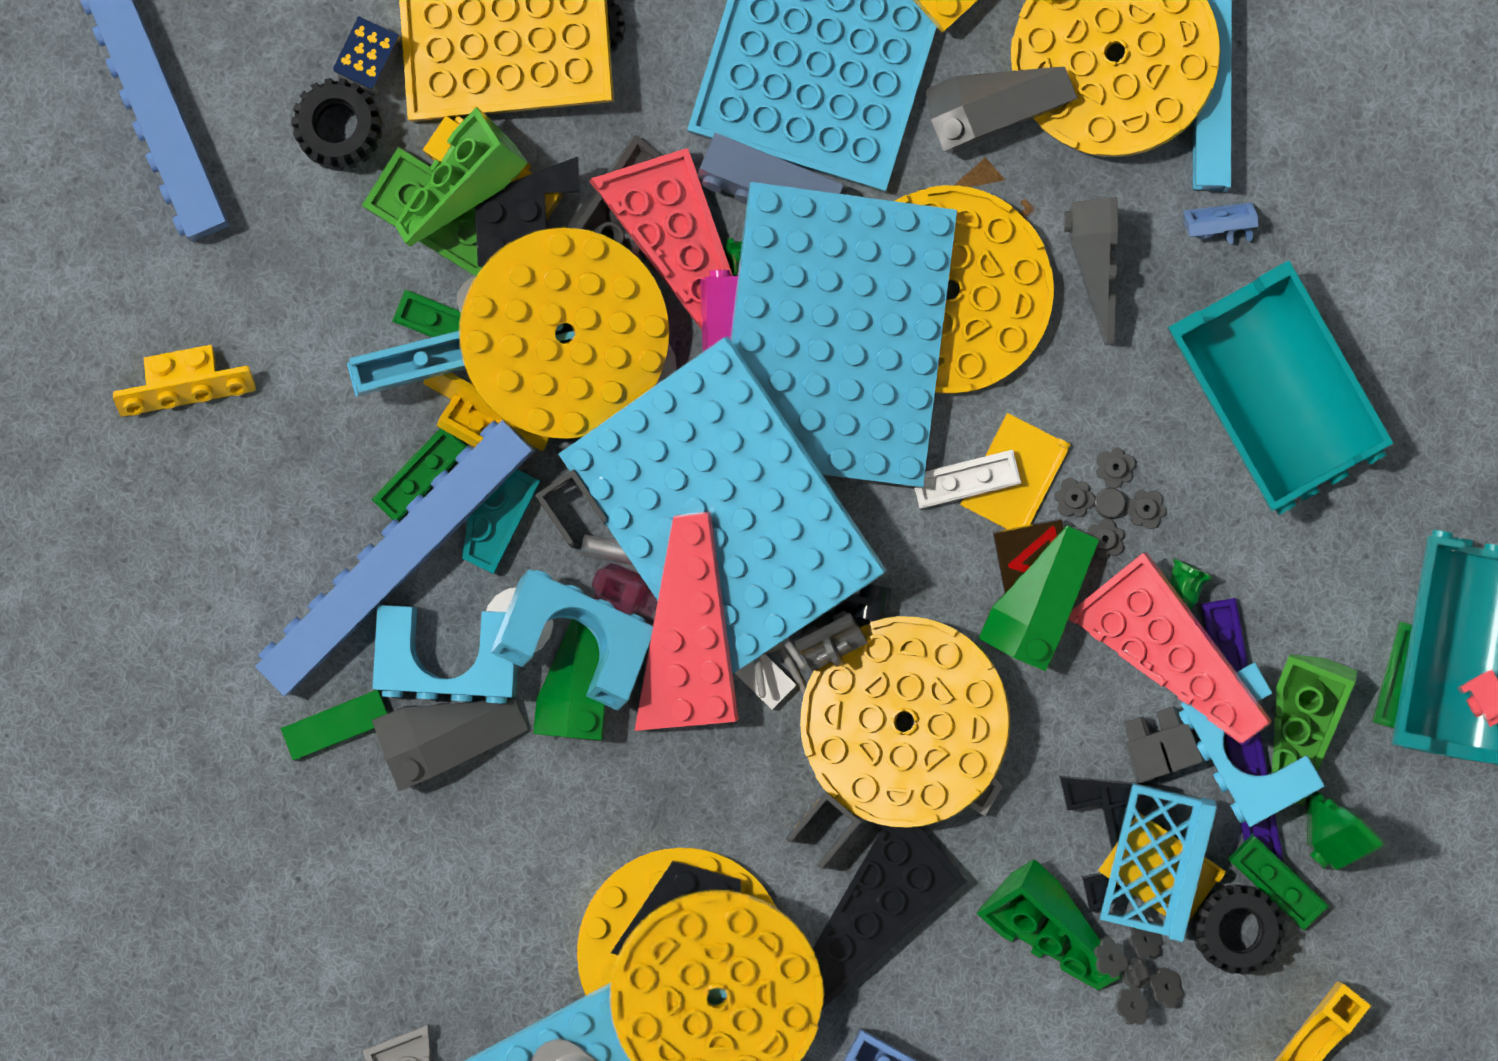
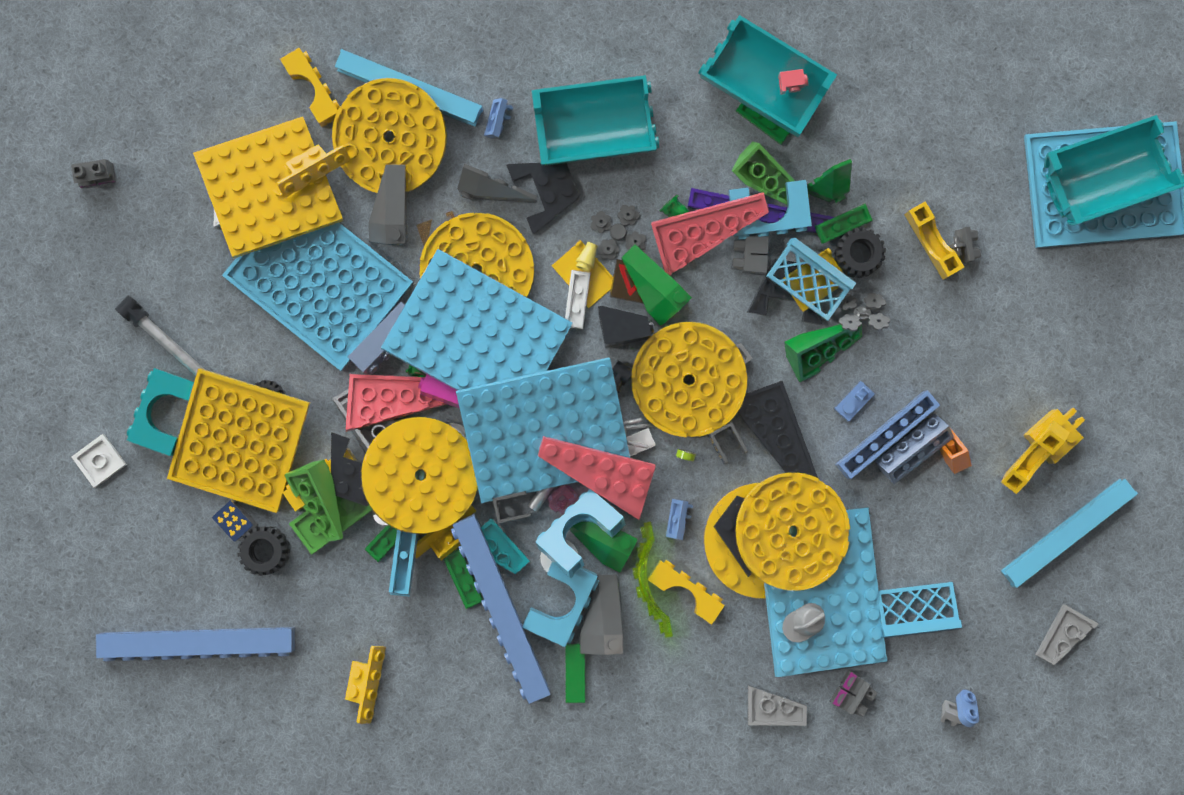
camera: 75 degrees left, 0 degrees up
(535, 902) = (706, 606): none -> yellow arch
(545, 768) = (640, 573): none -> clear neon green piece
(661, 794) = (677, 518): none -> medium blue plate
(775, 767) = (686, 455): none -> lime tile
(831, 641) = (633, 401): dark grey hips -> none
(949, 574) = (623, 327): none -> black slope
(981, 1019) = (854, 401): none -> medium blue plate
(1043, 468) = (587, 257): none -> light yellow cone
(1142, 364) = (553, 186): none -> black wing

